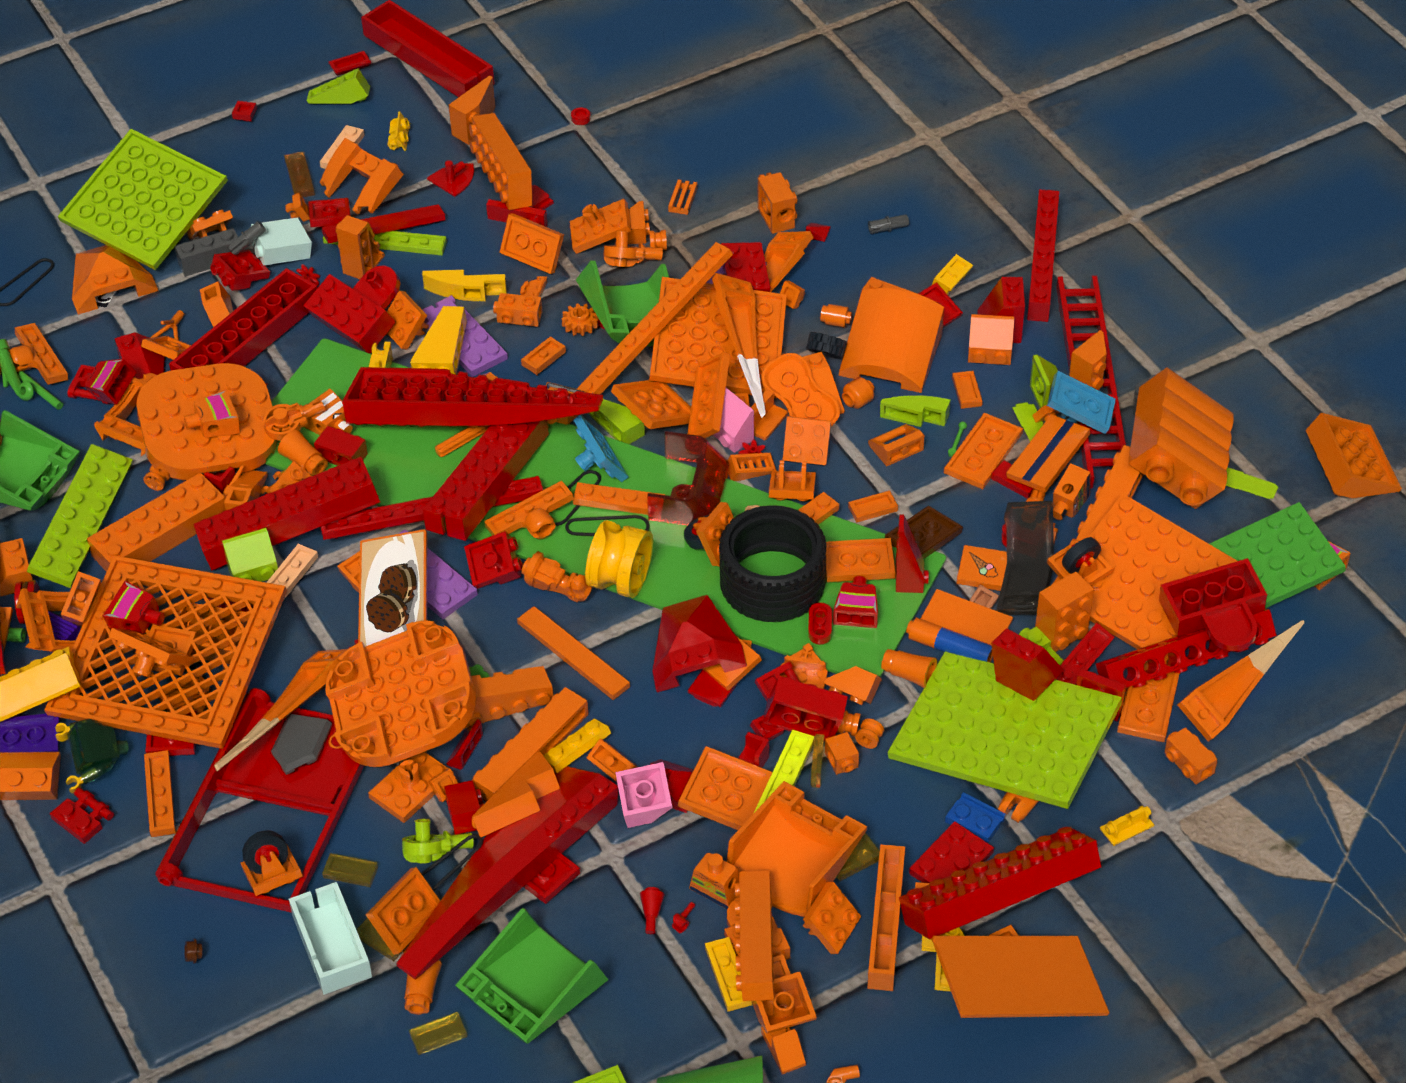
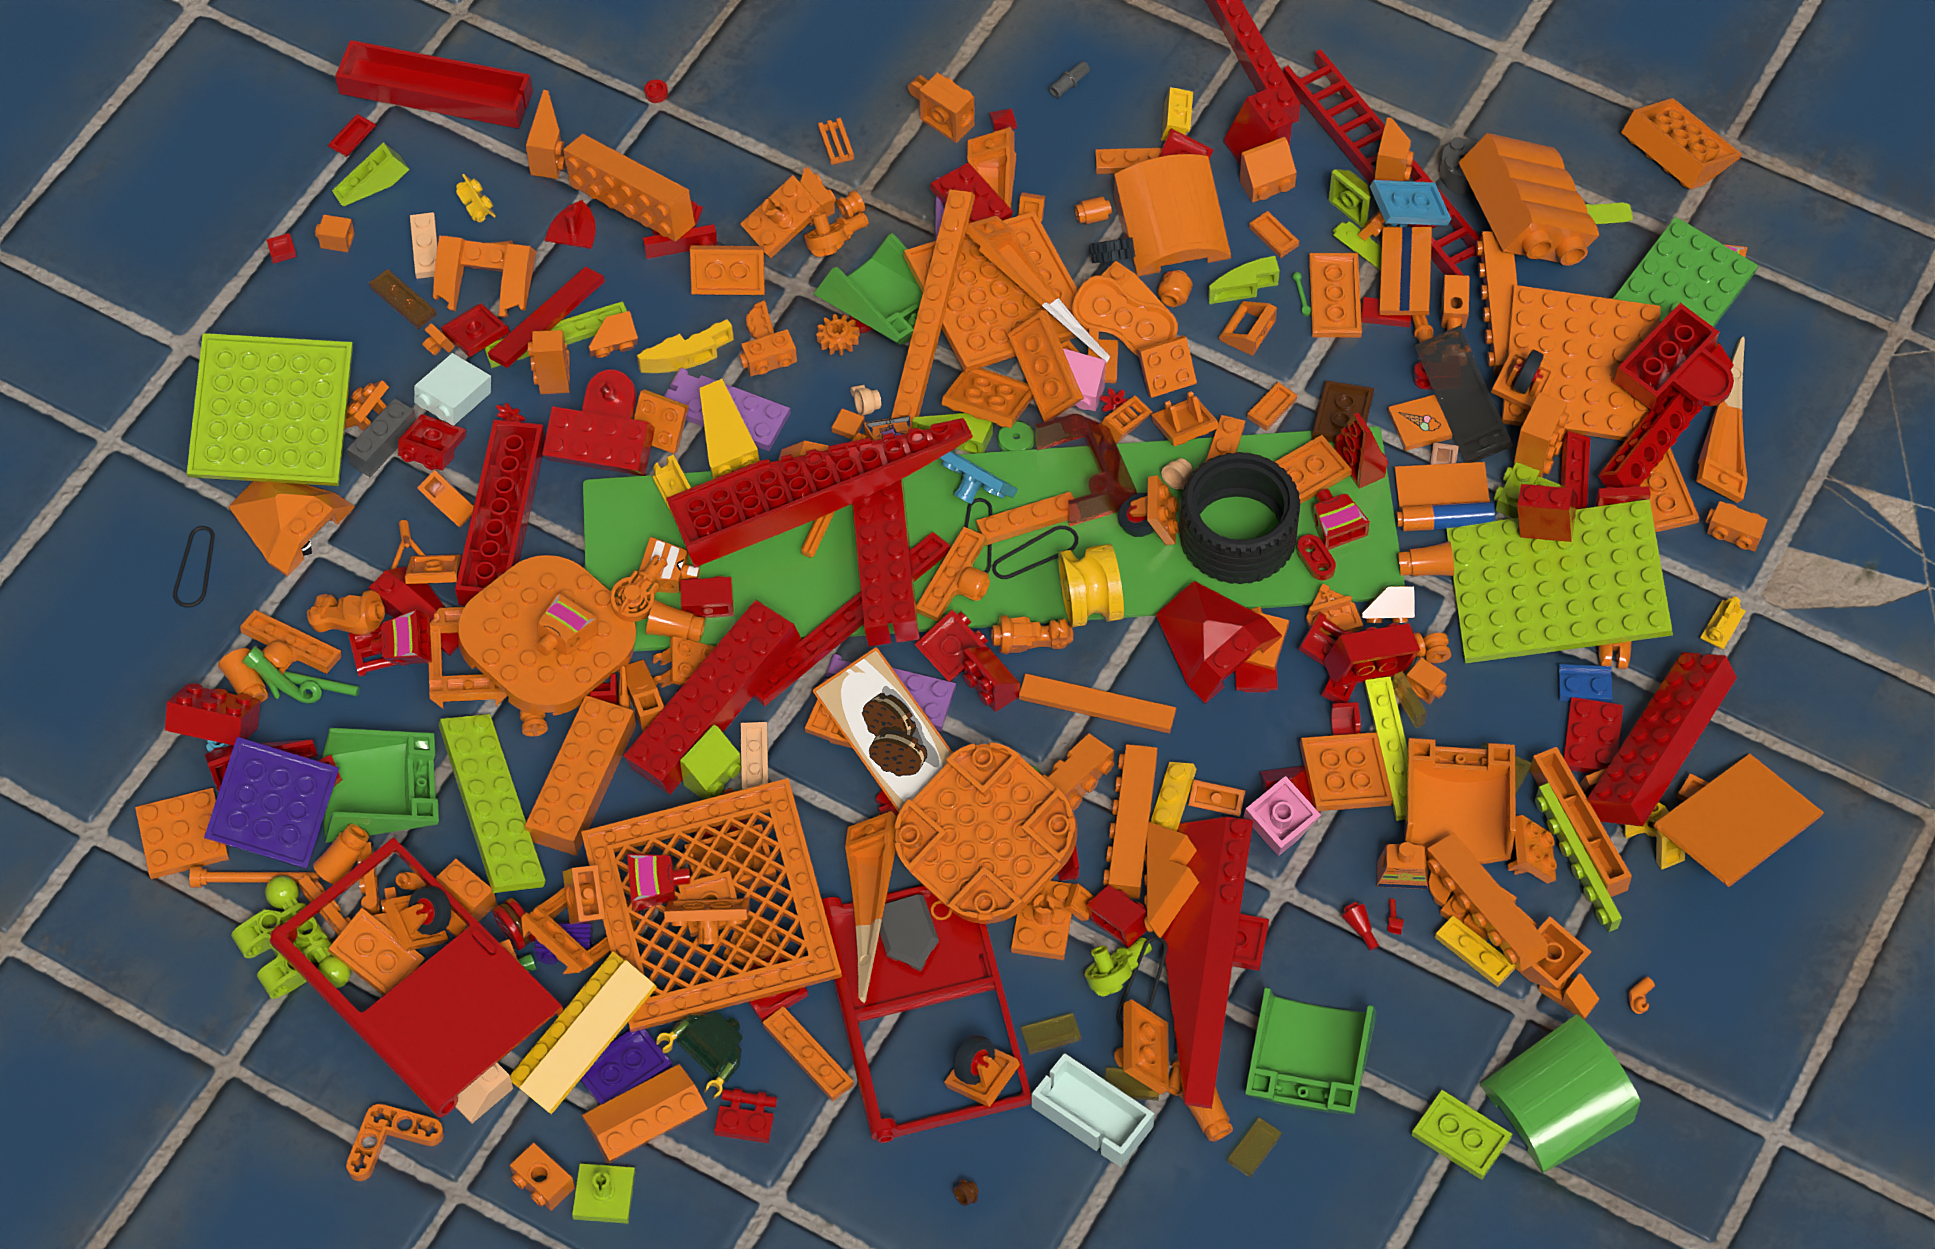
camera: 30 degrees left, 10 degrees up
(89, 349) = (349, 614): none -> orange animal
(247, 238) = (424, 404): dark grey axle -> none
(287, 115) = (335, 233): none -> orange brick
(420, 253) = (614, 334): none -> orange slope
(502, 593) = (989, 678): none -> red slope
(540, 378) = (848, 424): none -> orange tile
(543, 355) = (829, 393): orange plate -> none
(566, 371) = (865, 399): none -> light nougat piece
(655, 442) = (1022, 431): none -> bright green piece
(862, 952) = (1581, 864): none -> lime plate

